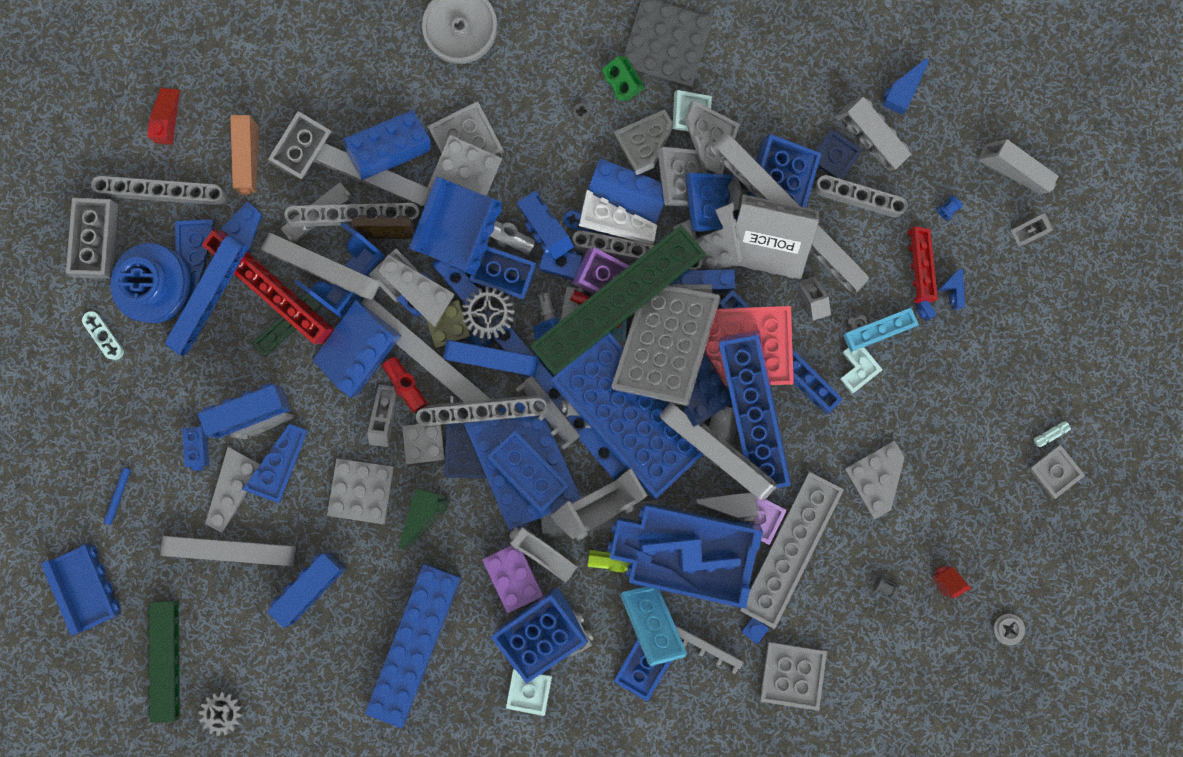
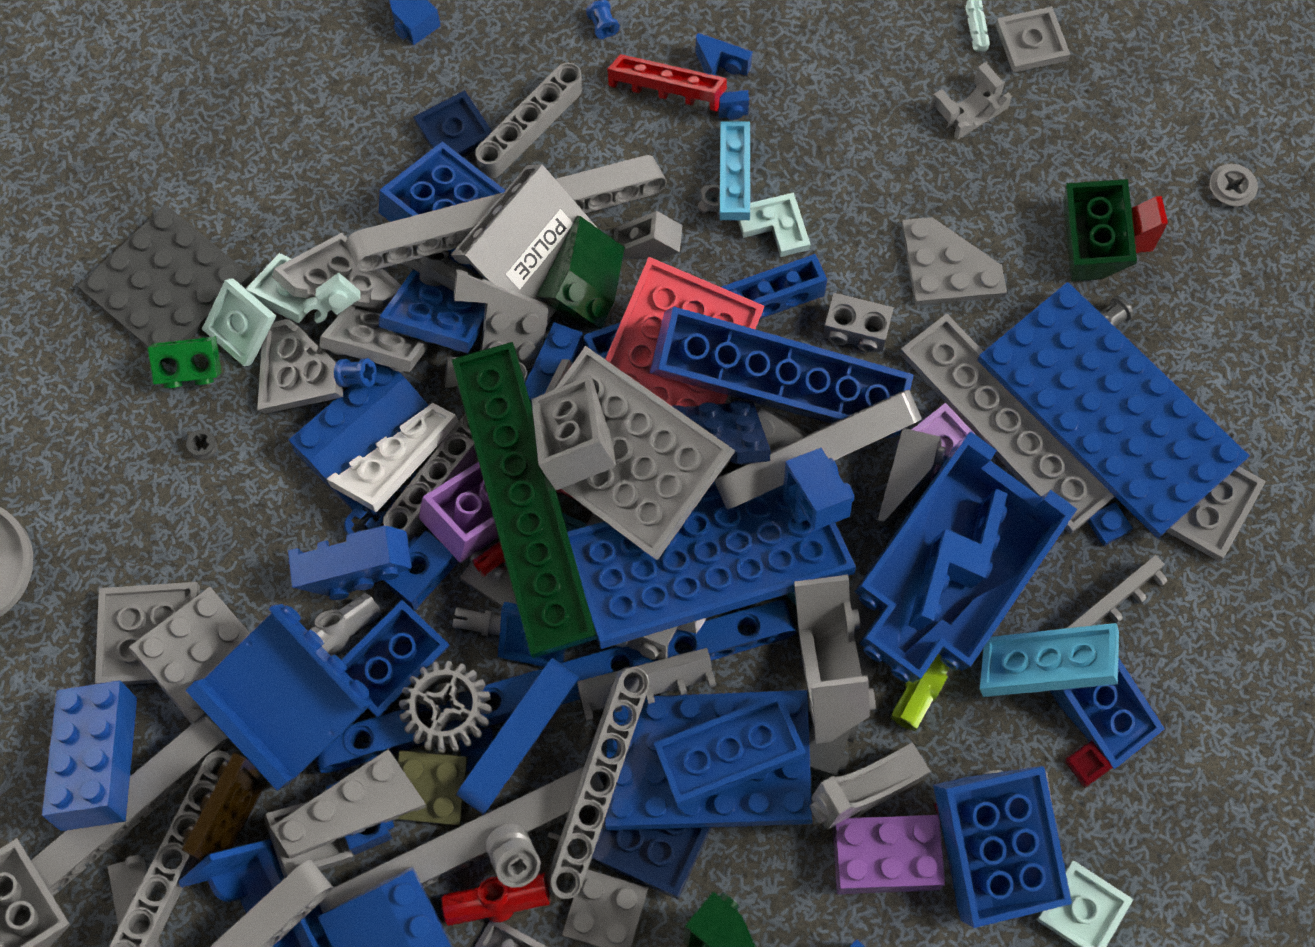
camera: 65 degrees left, 15 degrees down
(426, 383) = (512, 855): none -> light grey wheel
(610, 666) = (1088, 764): none -> dark red tile
(650, 172) = (355, 372): none -> blue bush
(658, 95) = (239, 322): none -> light aqua plate
(663, 311) = (572, 434): none -> light grey slope
(687, 459) = (816, 490): none -> blue brick
(694, 141) = (332, 295): none -> light aqua plate
(772, 273) = (584, 275): none -> dark green slope
(820, 440) = (859, 316): none -> light grey brick
(824, 606) = (1113, 409): none -> blue plate
(874, 133) = (447, 65): light grey wedge -> none
(938, 559) = (1099, 228): none -> dark green slope
(992, 454) = (978, 107): none -> light grey piece

